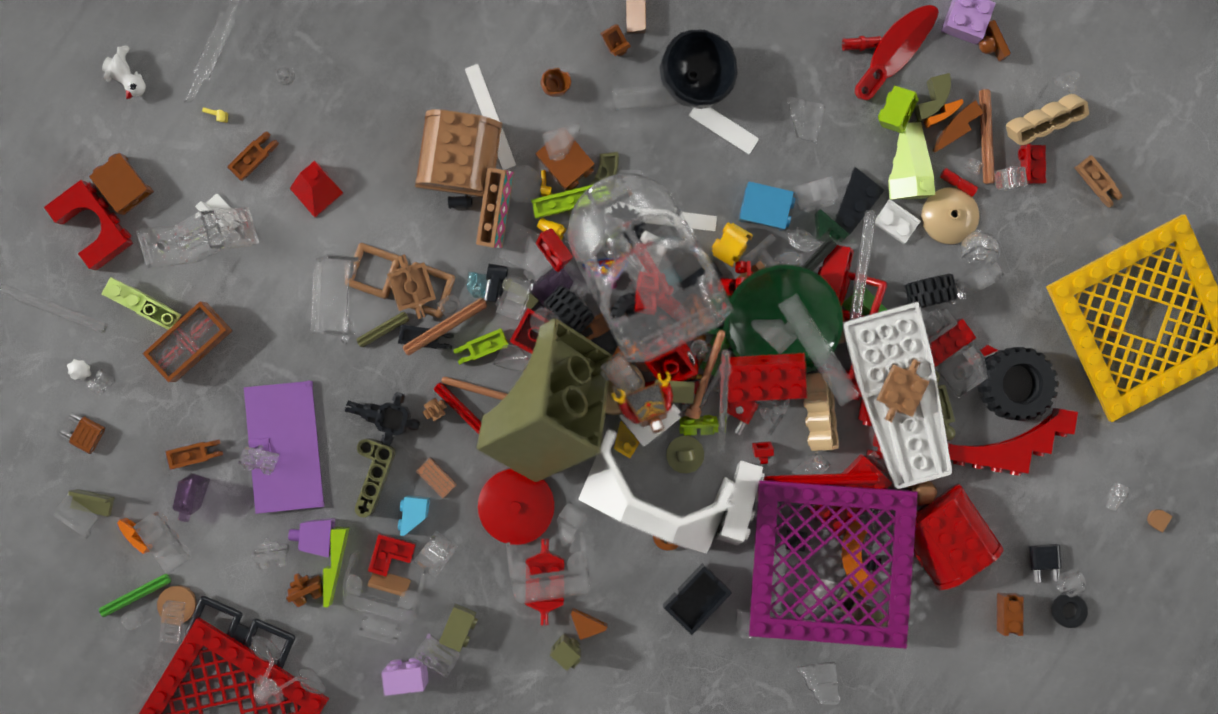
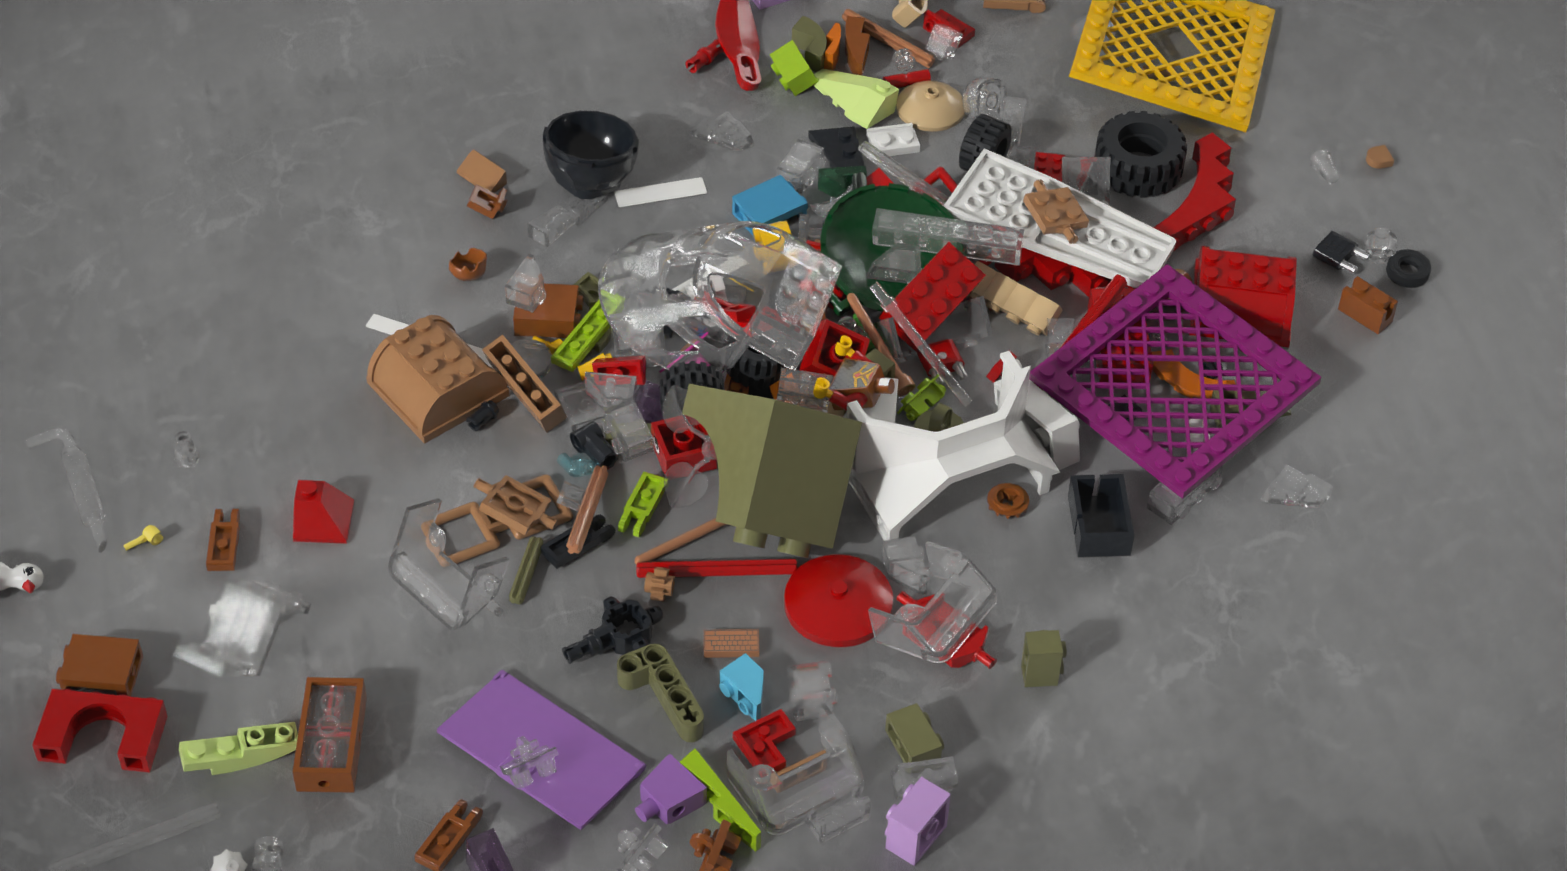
camera: 40 degrees left, 40 degrees down
(586, 624) = (1014, 628): dark orange slope -> none

